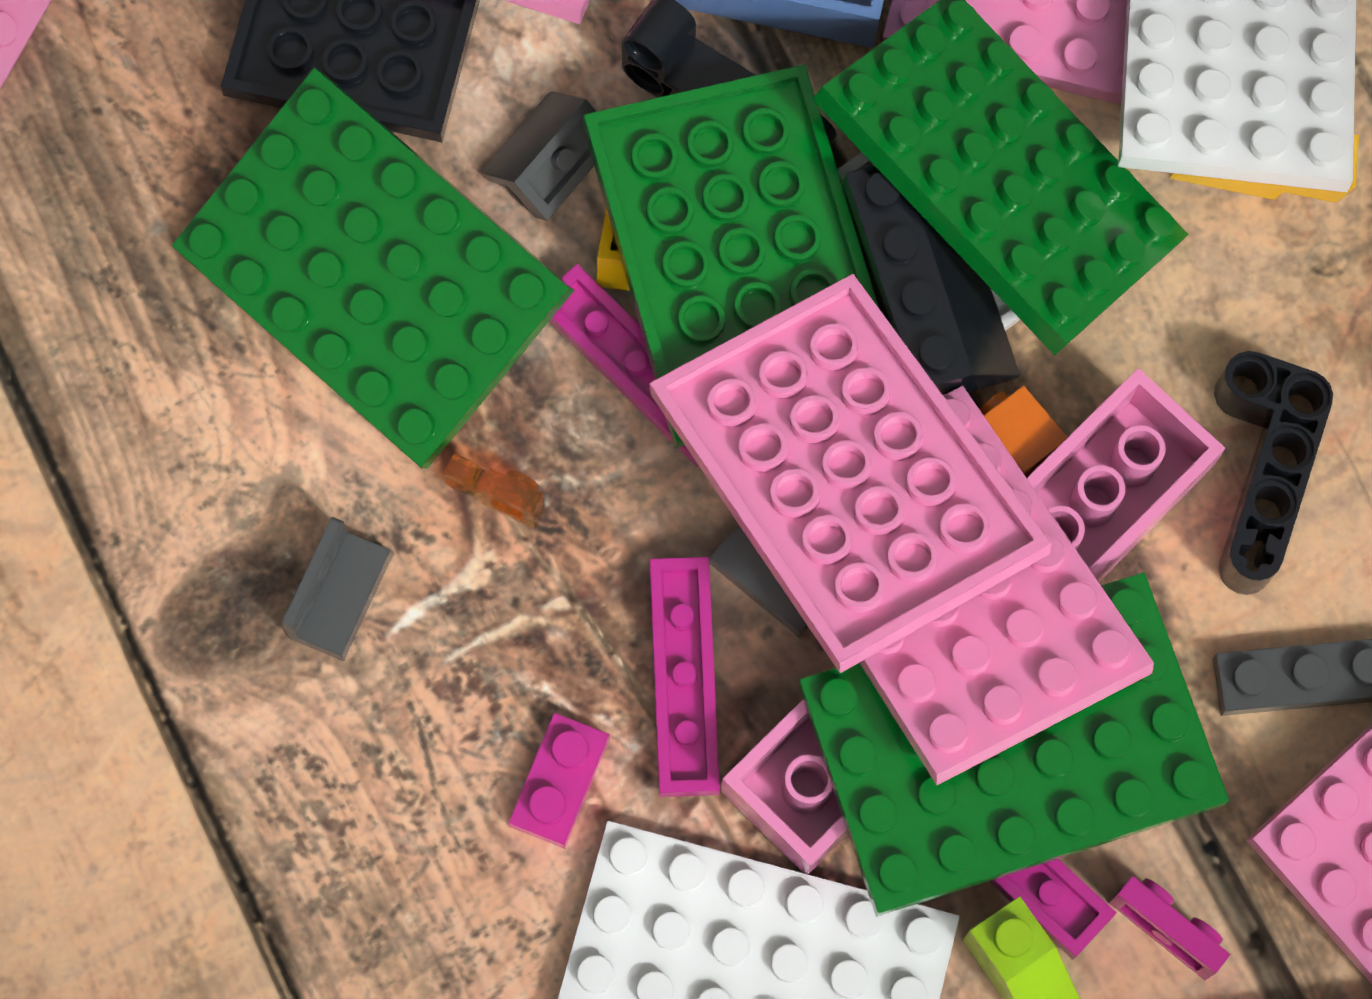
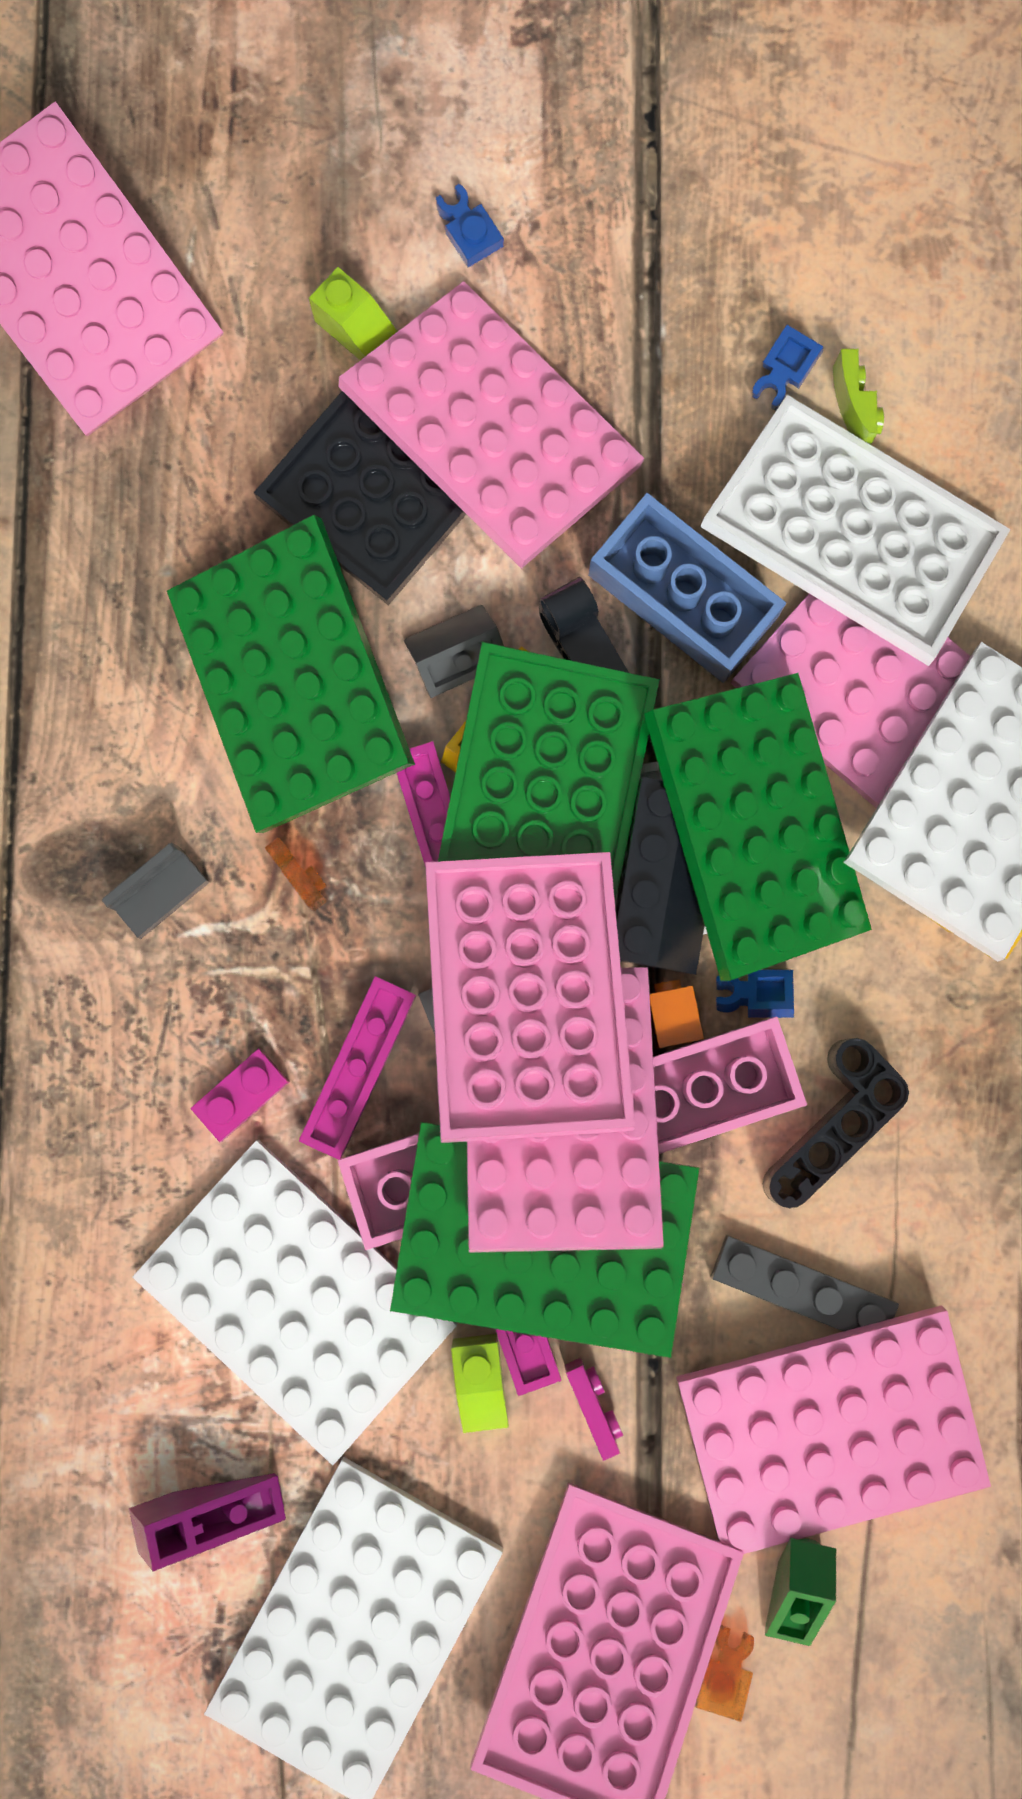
camera: 30 degrees right, 10 degrees up
(1102, 362) = (765, 993): none -> blue plate

